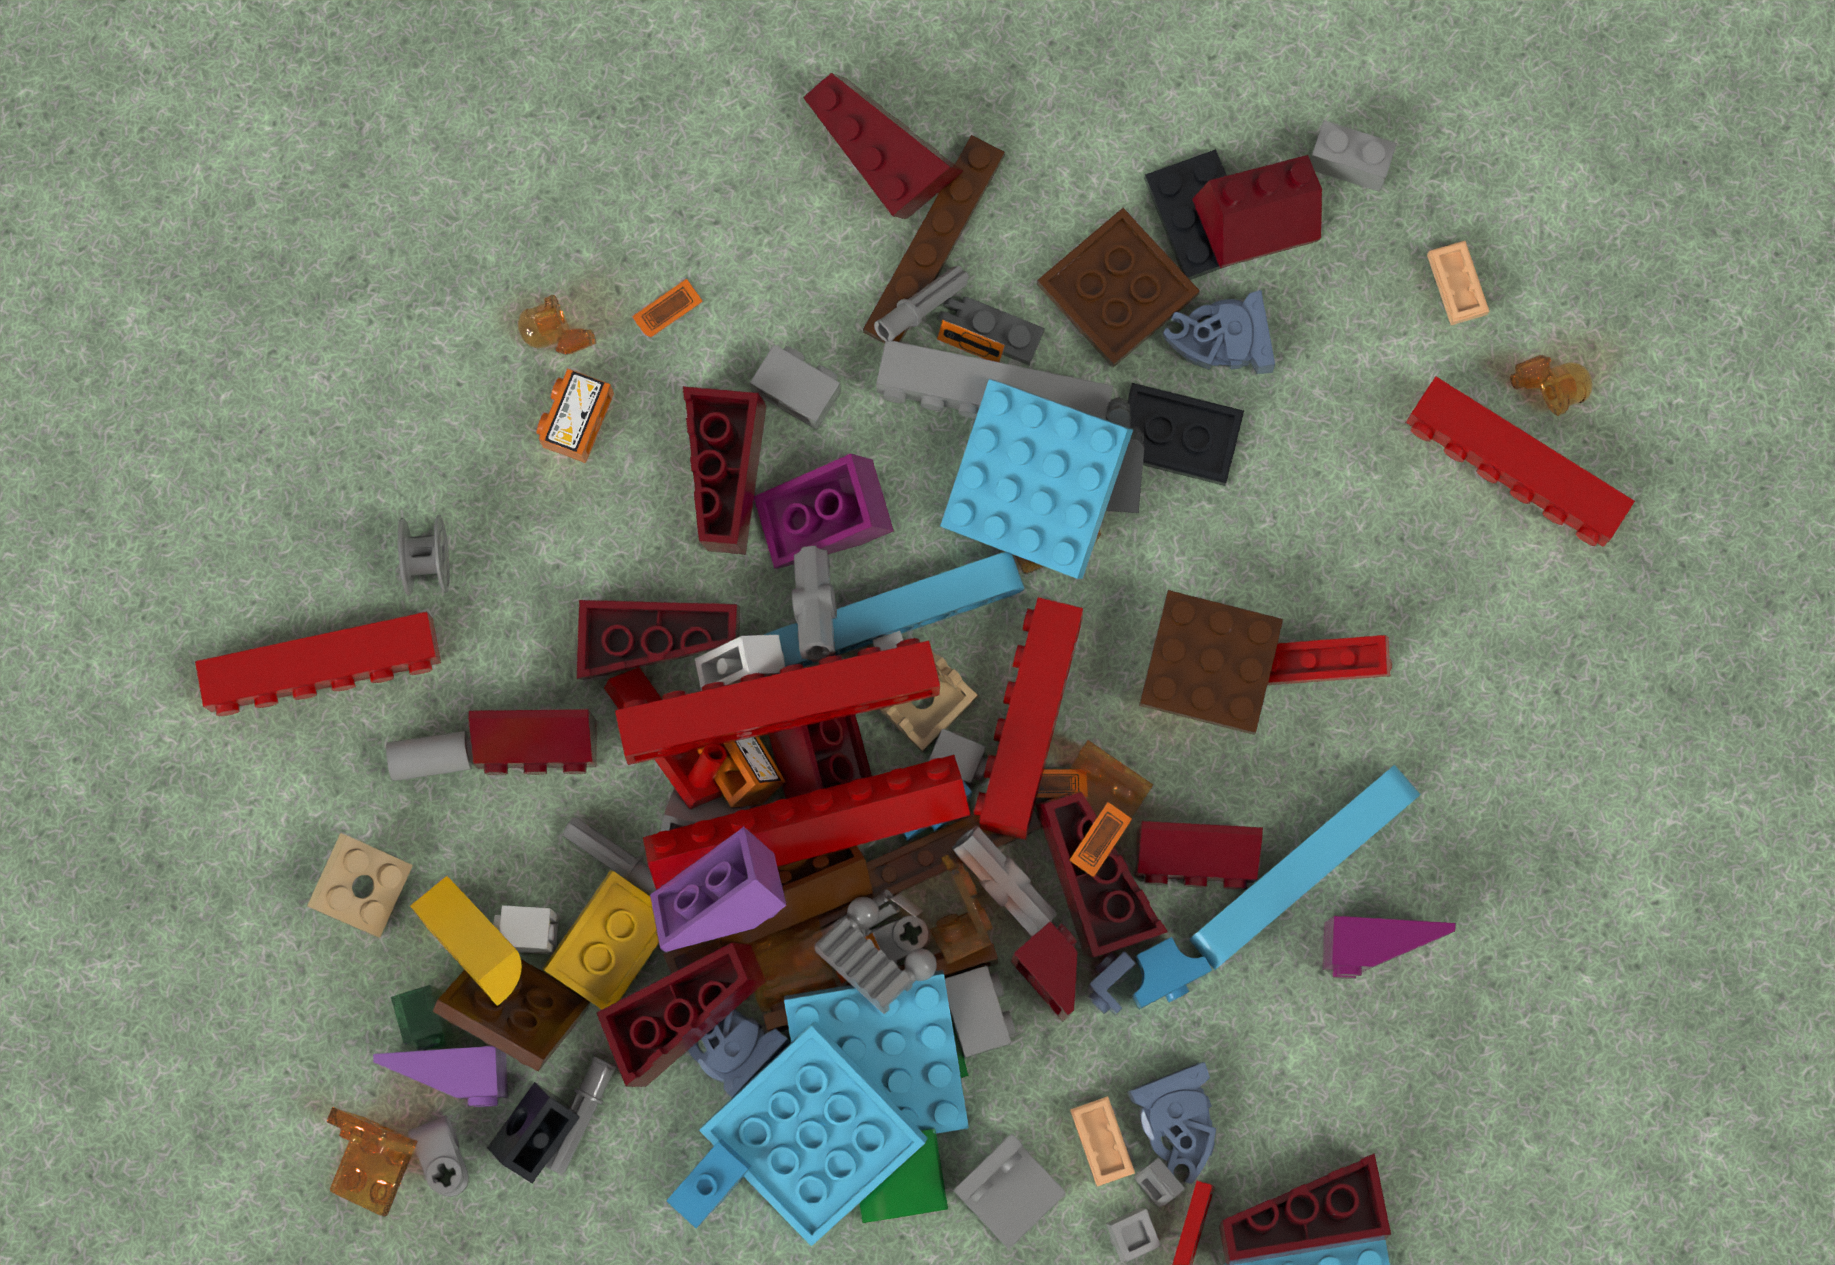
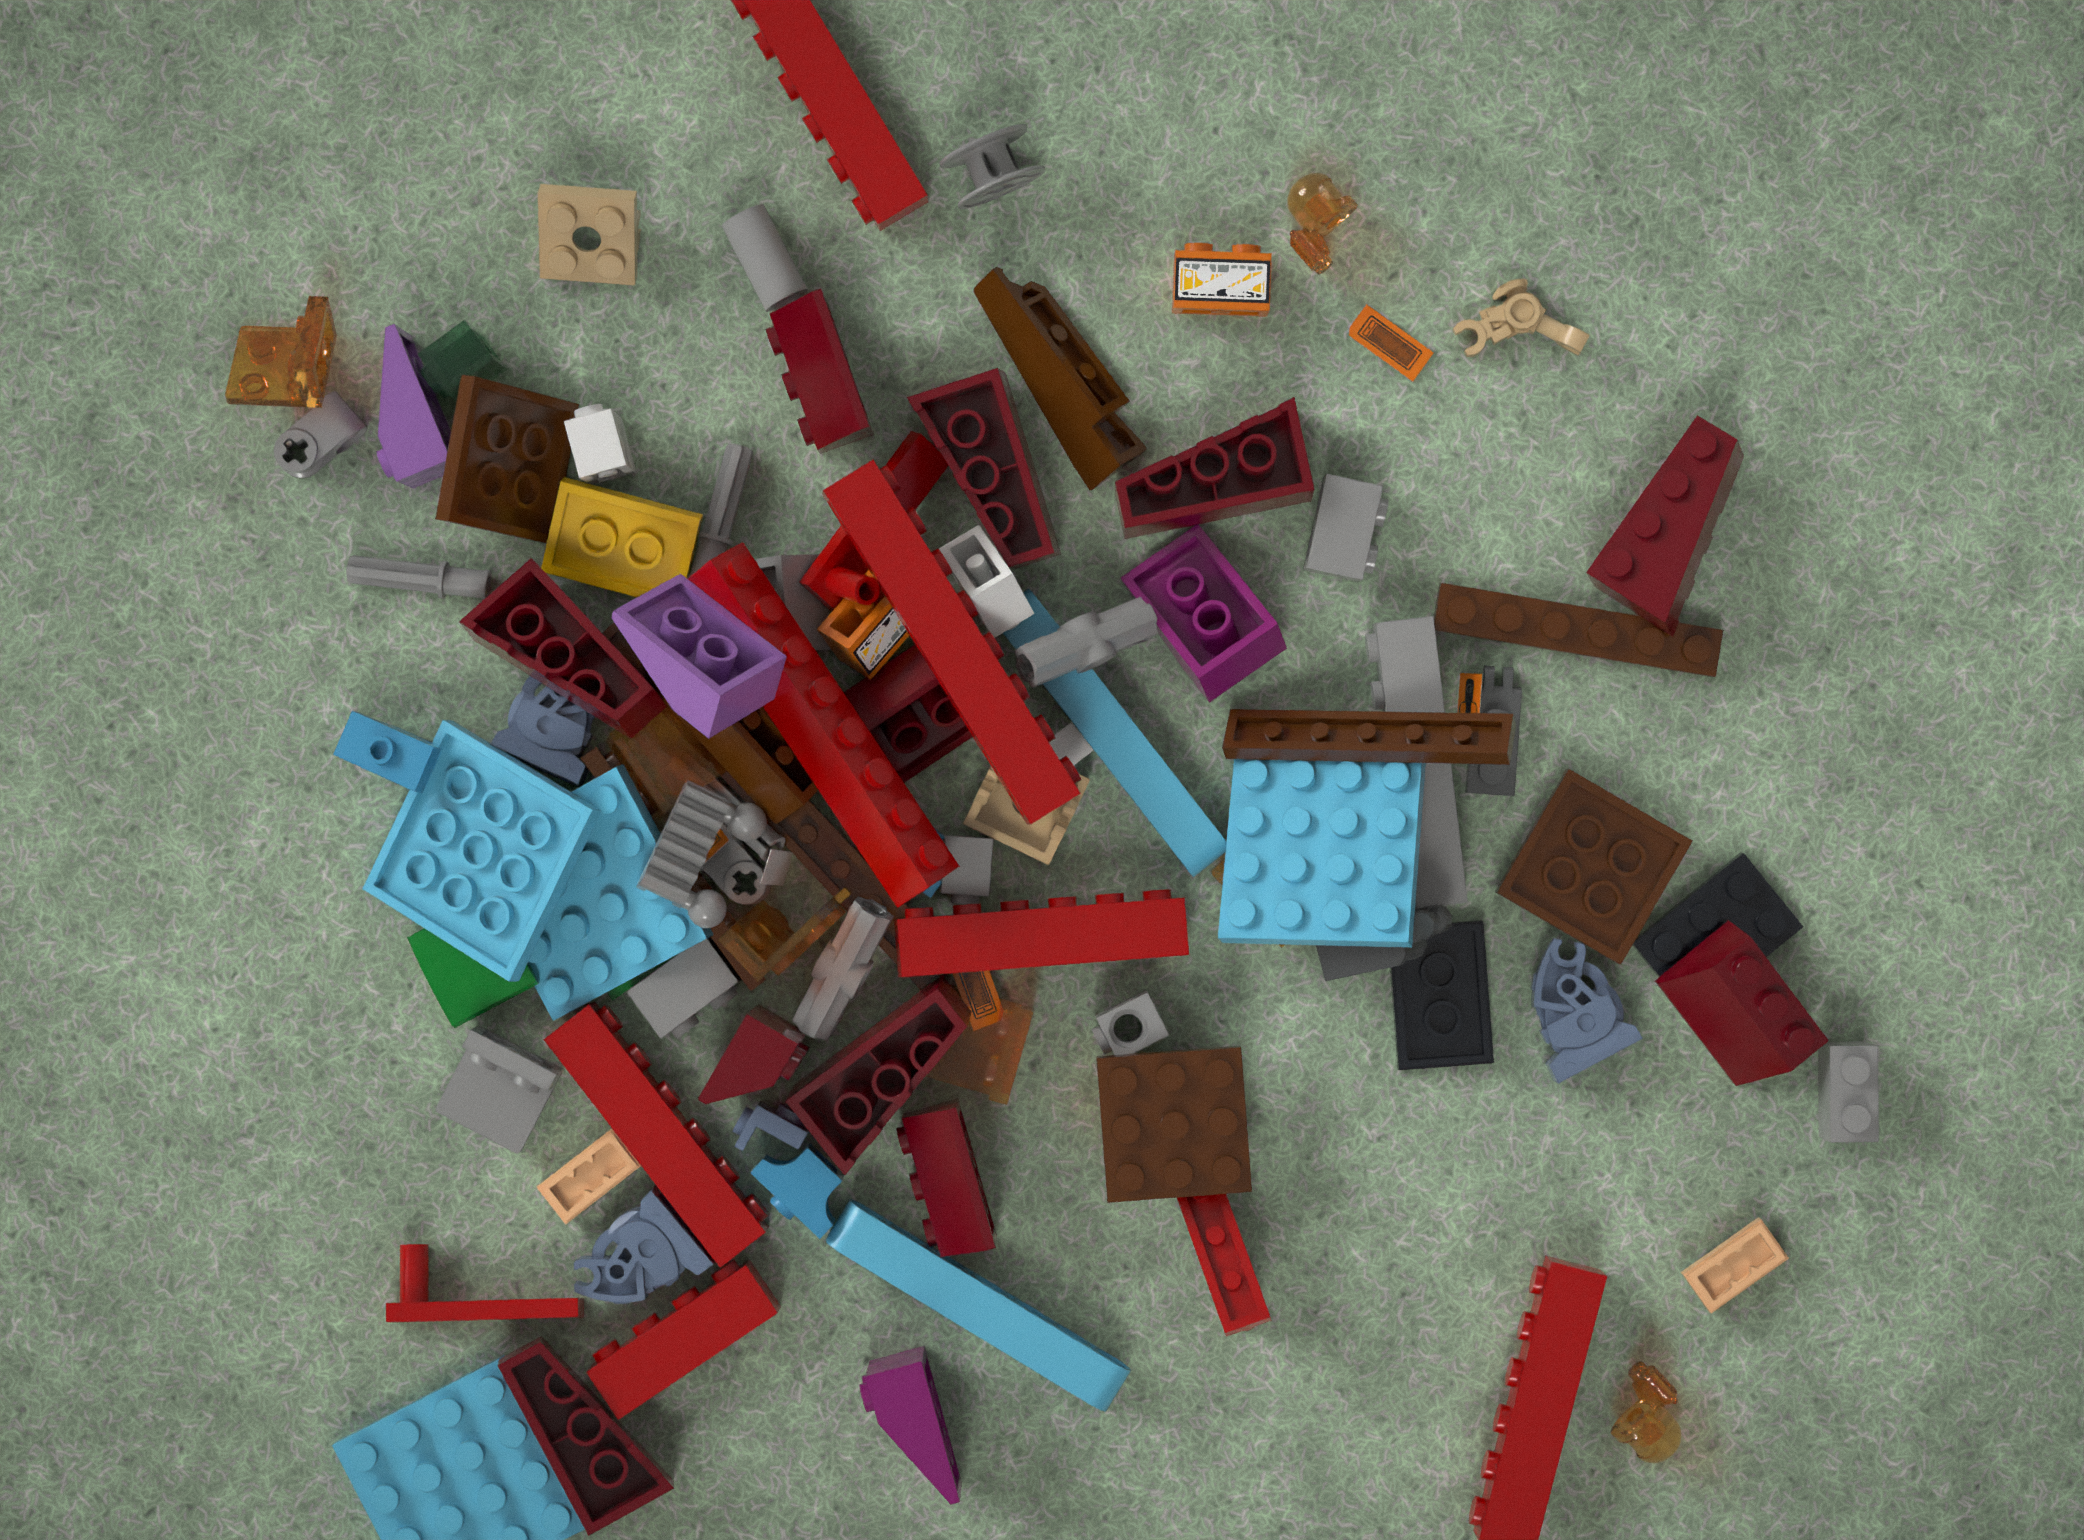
camera: 65 degrees right, 10 degrees up
(470, 939) = (561, 384): yellow brick -> none
(533, 1132) = (378, 533): black brick -> none
(603, 560) = (1062, 376): none -> reddish brown wedge
(681, 205) = (1519, 315): none -> tan piece
(913, 309) = (1479, 634): light grey axle -> none
(961, 415) = (1370, 736): none -> reddish brown plate
(1086, 1073) = (658, 1133): none -> red brick
(1100, 839) = (920, 1066): sticker -> none
(1123, 657) = (1143, 1008): none -> light grey brick
(1133, 1234) = (497, 1244): light grey plate -> none
(1159, 1183) = (563, 1254): light grey tile -> none
(1256, 1108) = (683, 1338): none -> red brick

